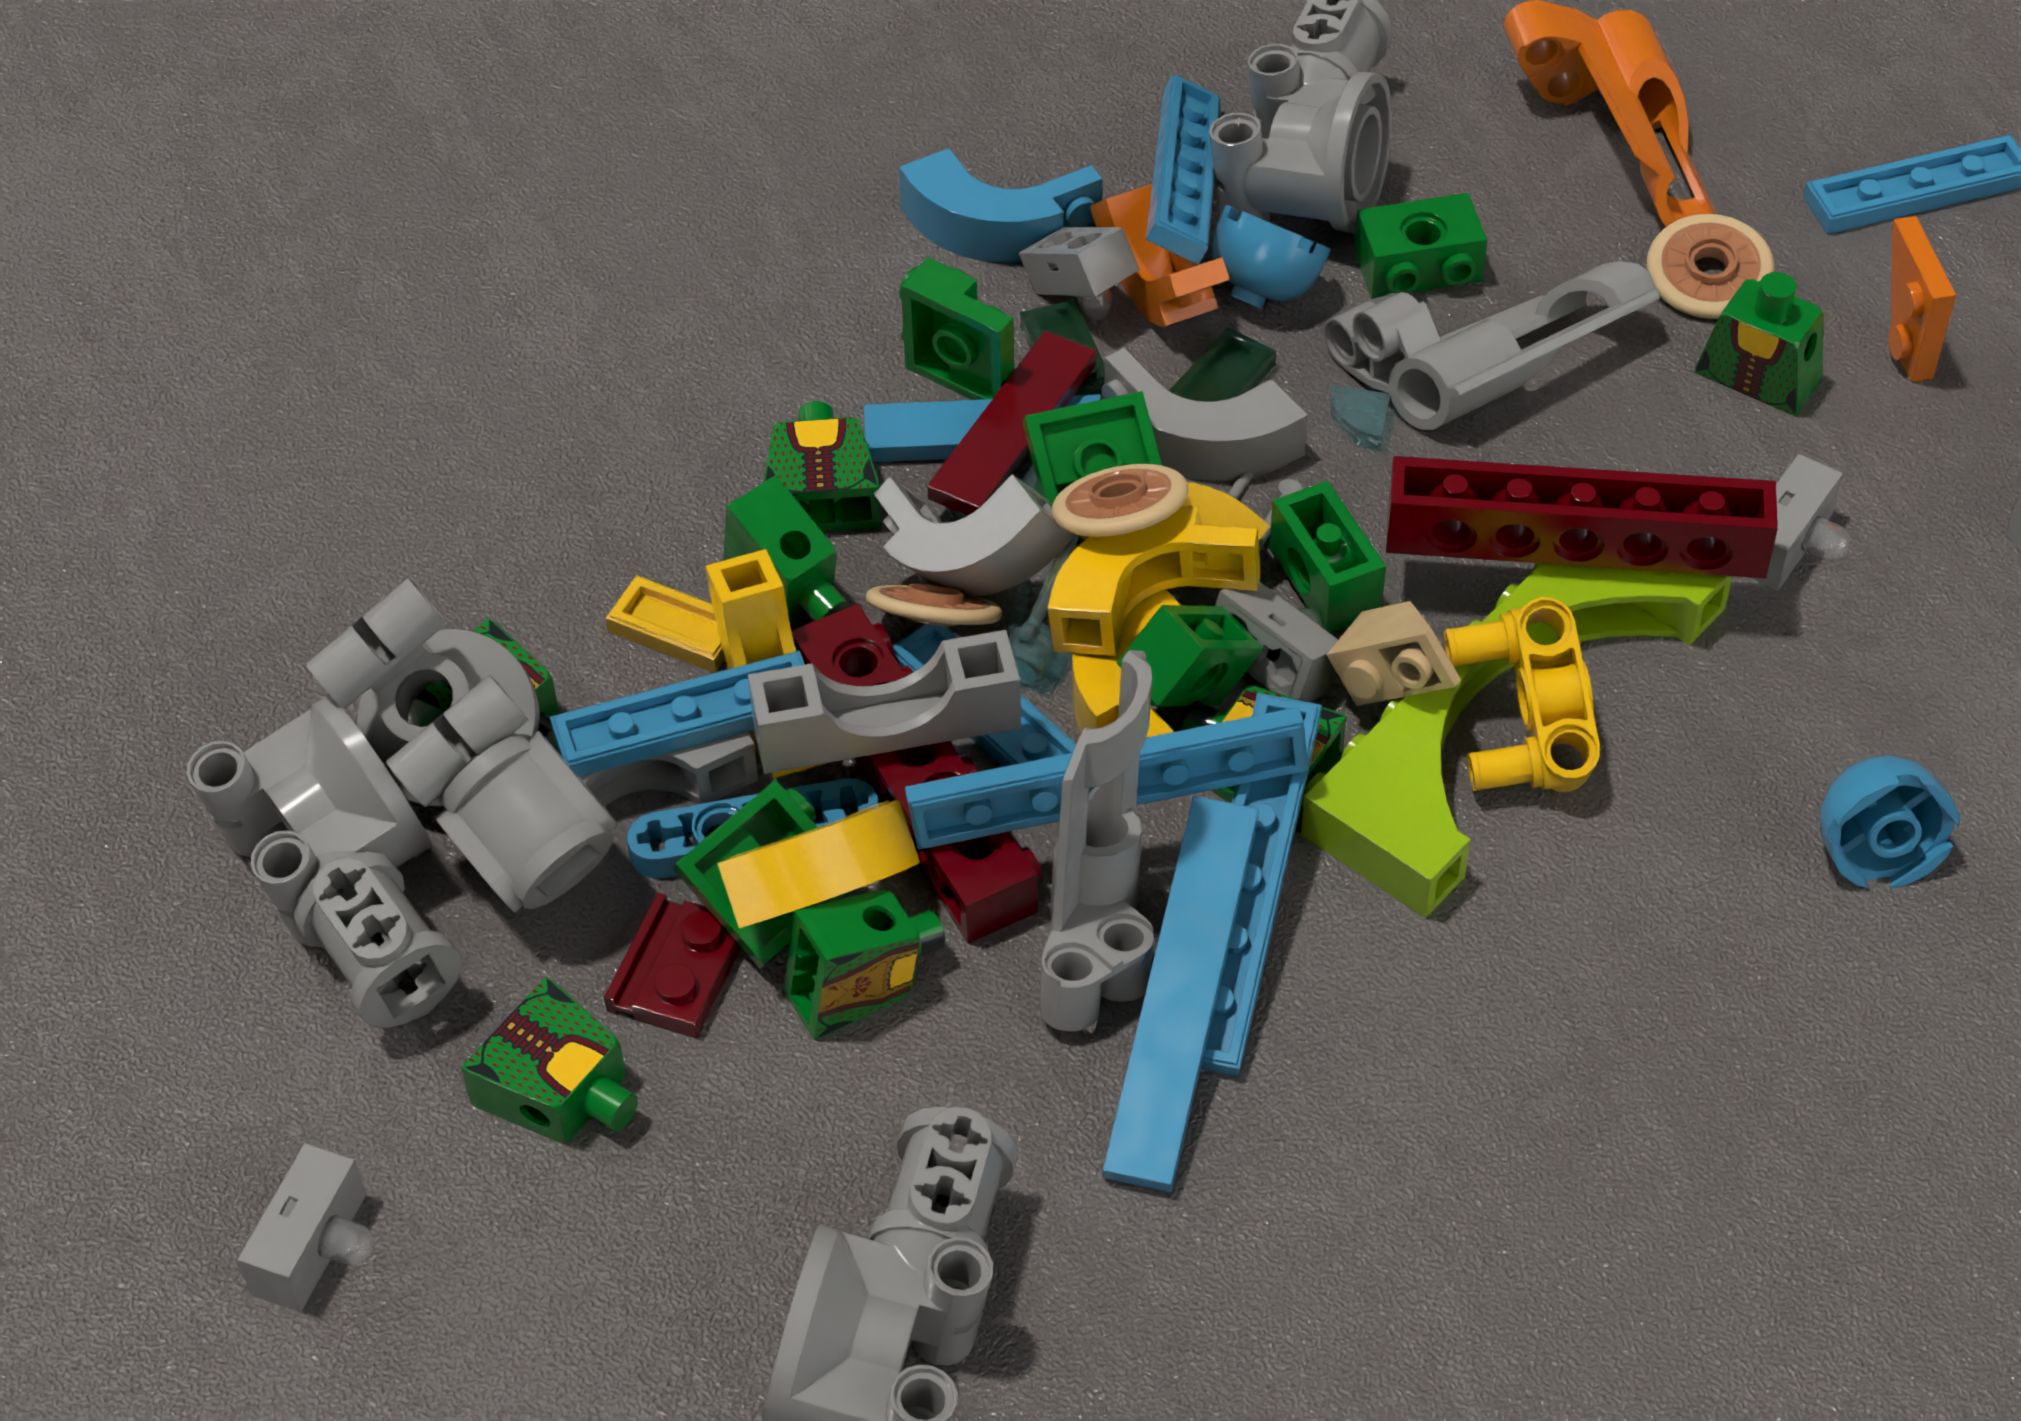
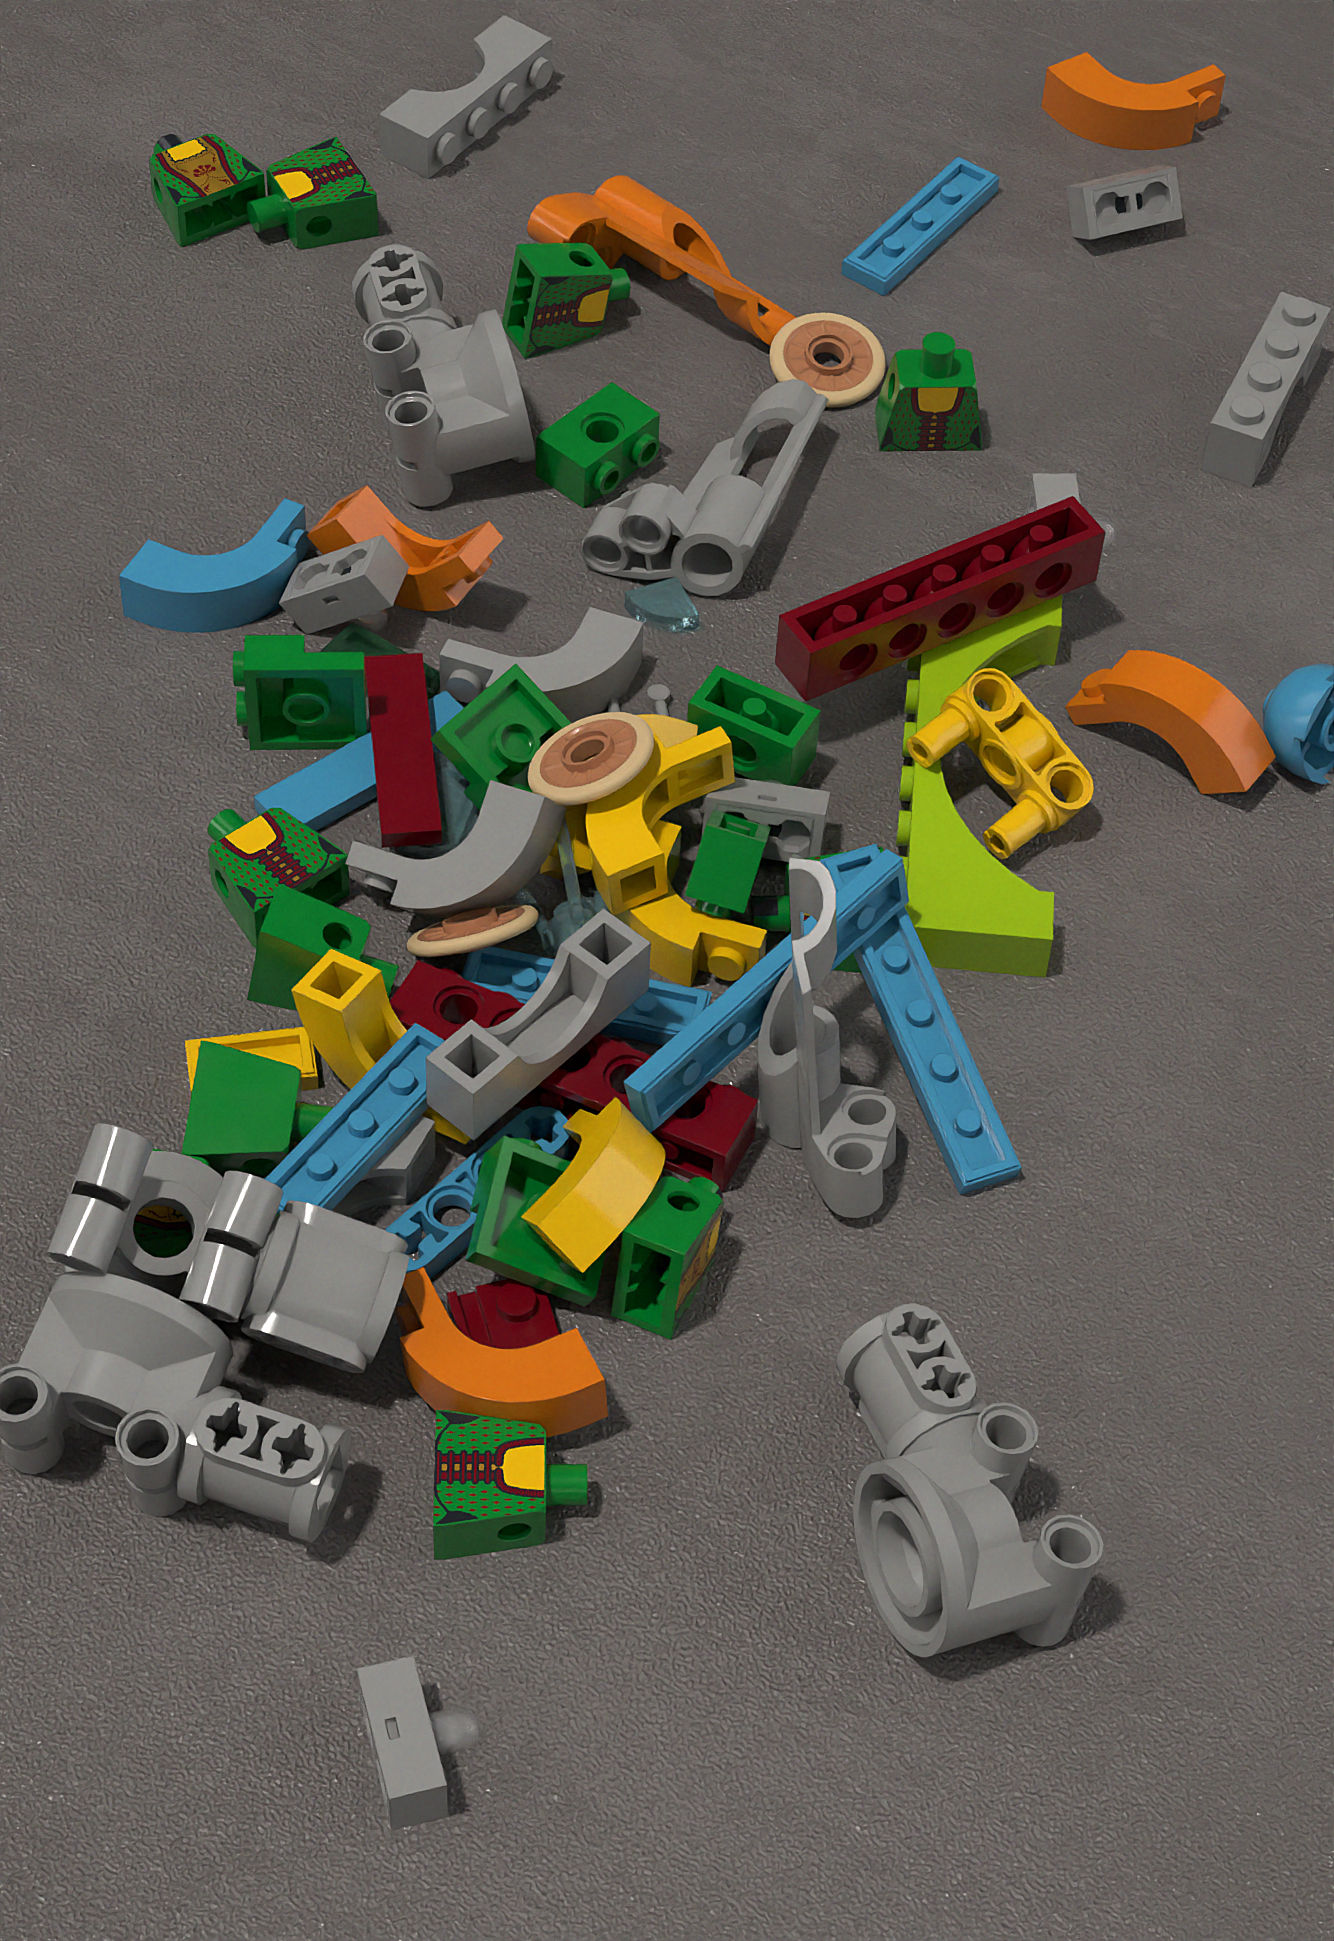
camera: 40 degrees left, 0 degrees up
(613, 649) = (246, 1111): none -> green torso
(645, 1006) = (536, 1384): none -> orange arch
(1181, 995) = (945, 1131): dark azure tile -> none
(1183, 170) = (375, 464): dark azure tile -> none
(1226, 369) = (526, 620): clear green tile -> none
(1265, 258) = (509, 501): dark azure cylinder -> none
(1391, 656) = (883, 777): tan slope -> none
(1496, 97) = (559, 295): none -> green torso
(1751, 748) = (1185, 708): none -> orange arch
(1919, 300) = (1021, 313): orange wing -> none

